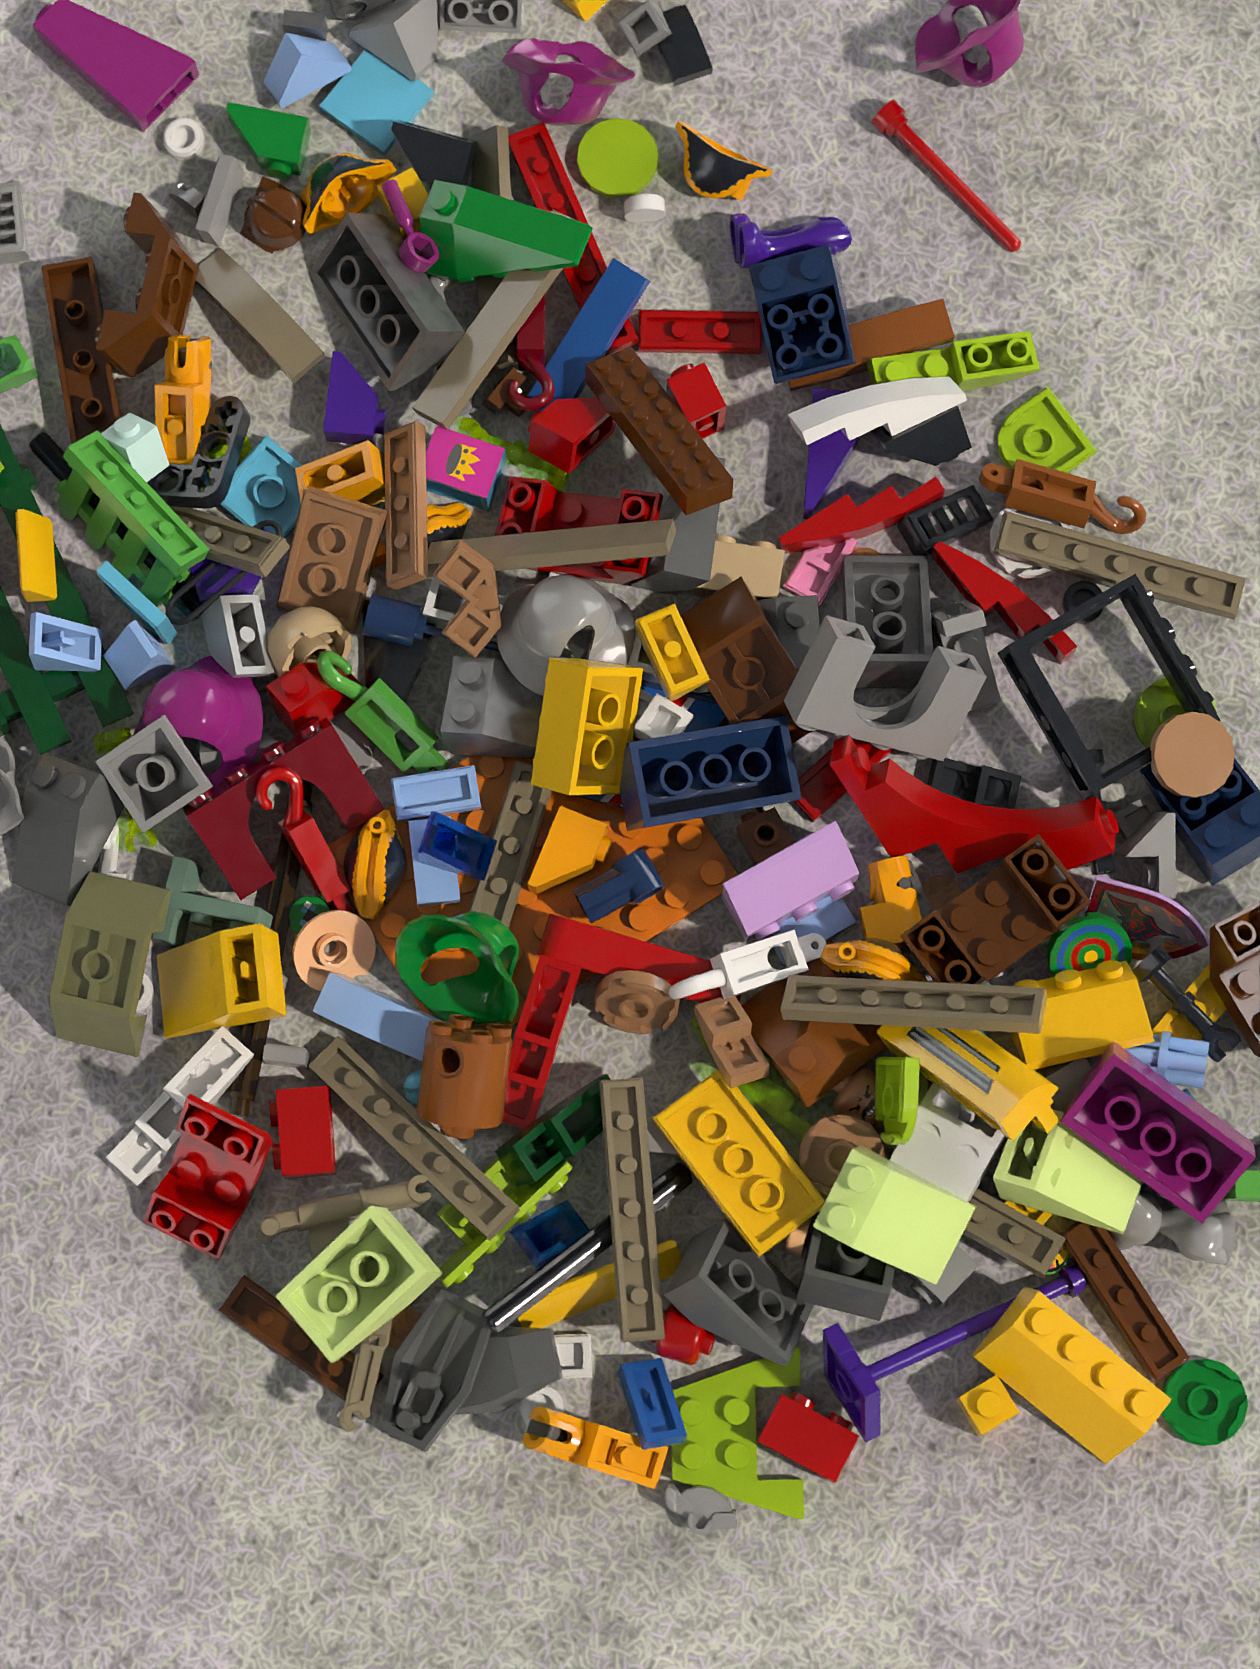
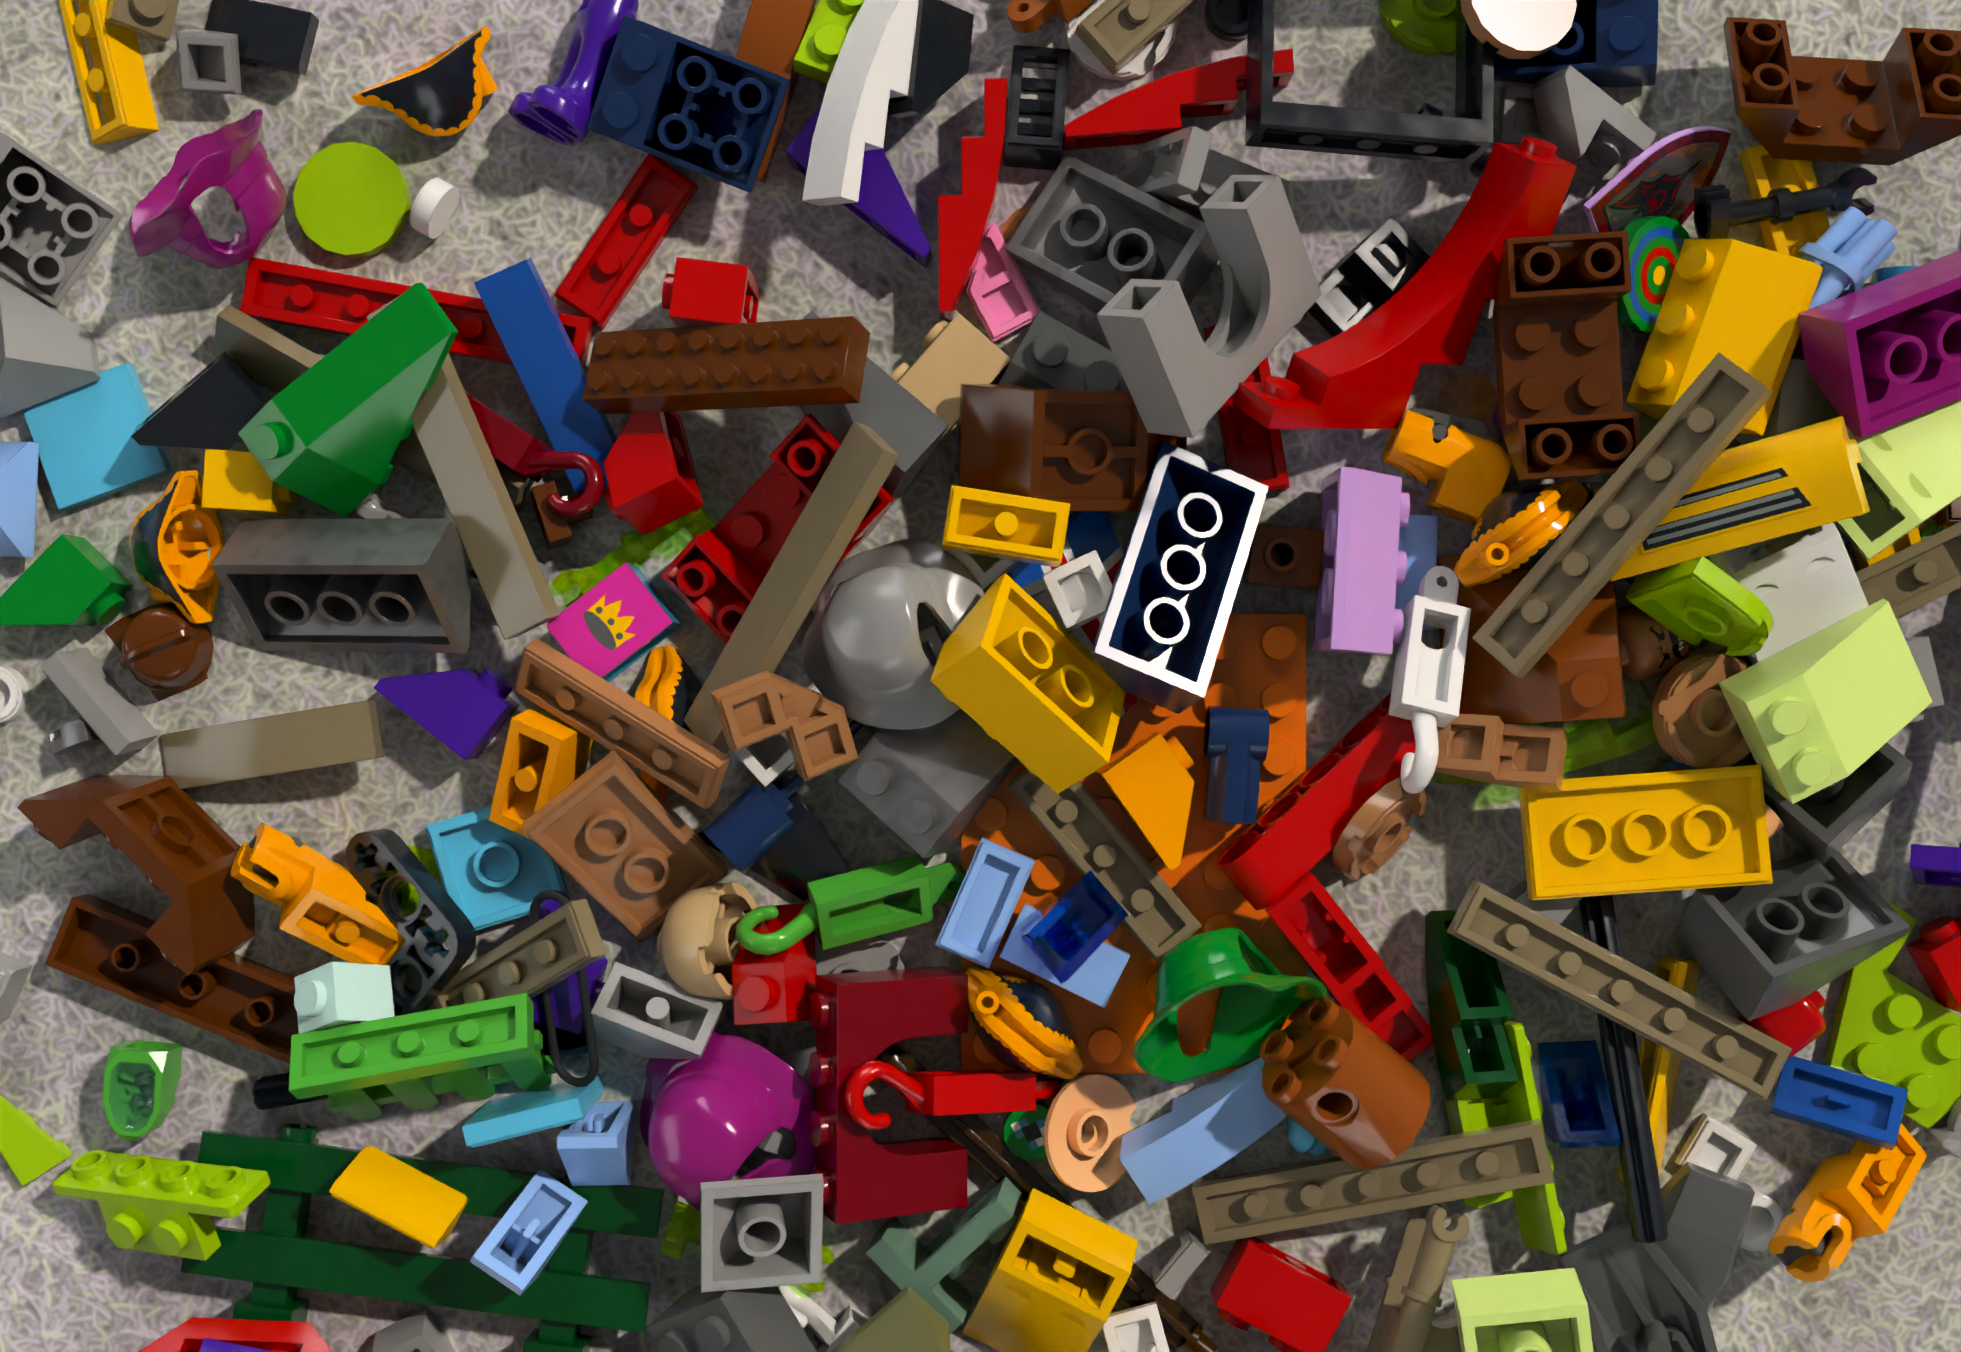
camera: 60 degrees left, 10 degrees up
(414, 239) = (297, 503): magenta piece -> none

